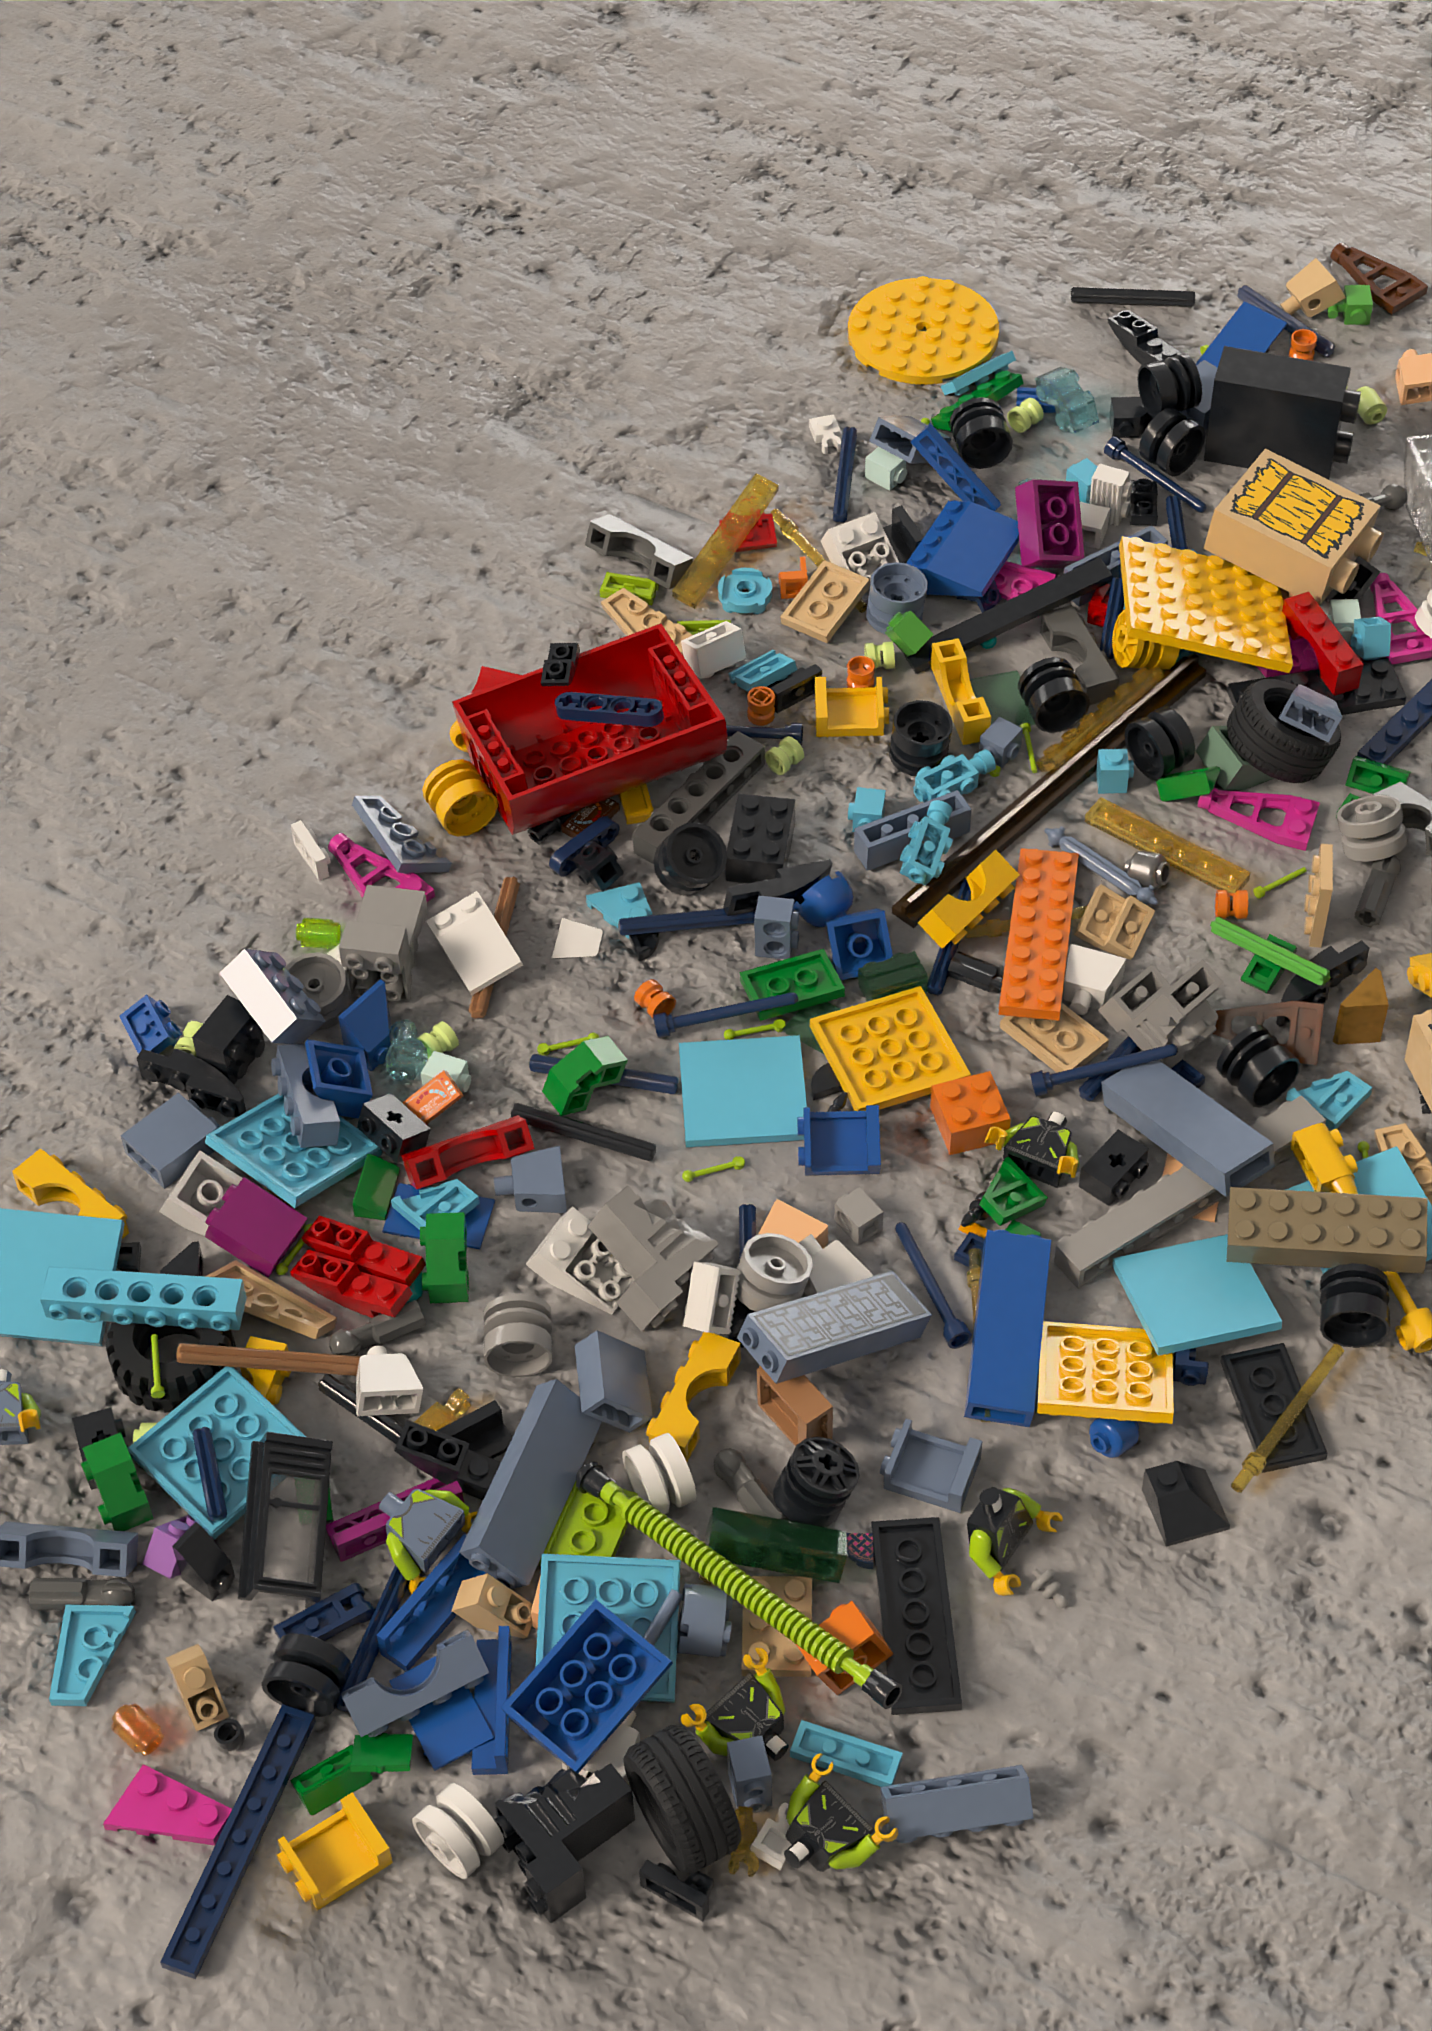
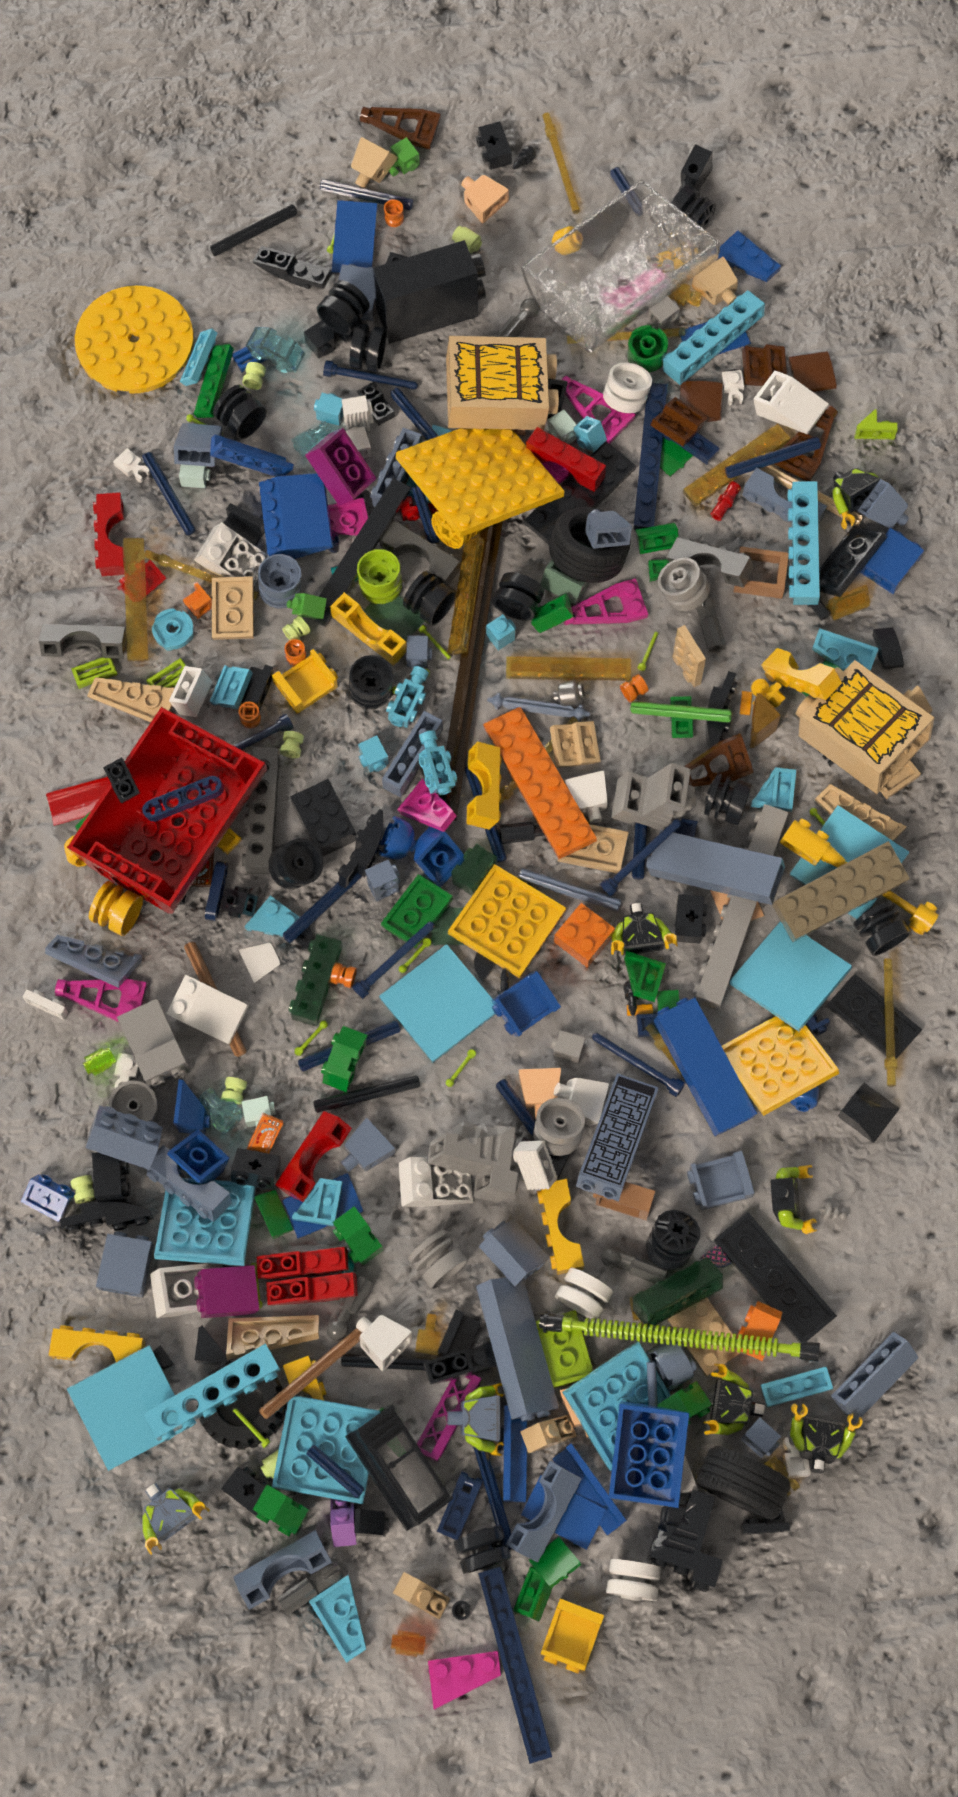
camera: 35 degrees left, 20 degrees up
(613, 991) = (316, 980): none -> clear green brick
(691, 1675) = (689, 1400): none -> green brick
(766, 457) = (109, 512): none -> red arch
(884, 888) = (427, 808): none -> dark pink wing
(992, 1063) = (569, 889): none -> sand blue axle
(1011, 646) = (379, 576): none -> lime wheel
(1396, 988) = (770, 692): none -> yellow hips

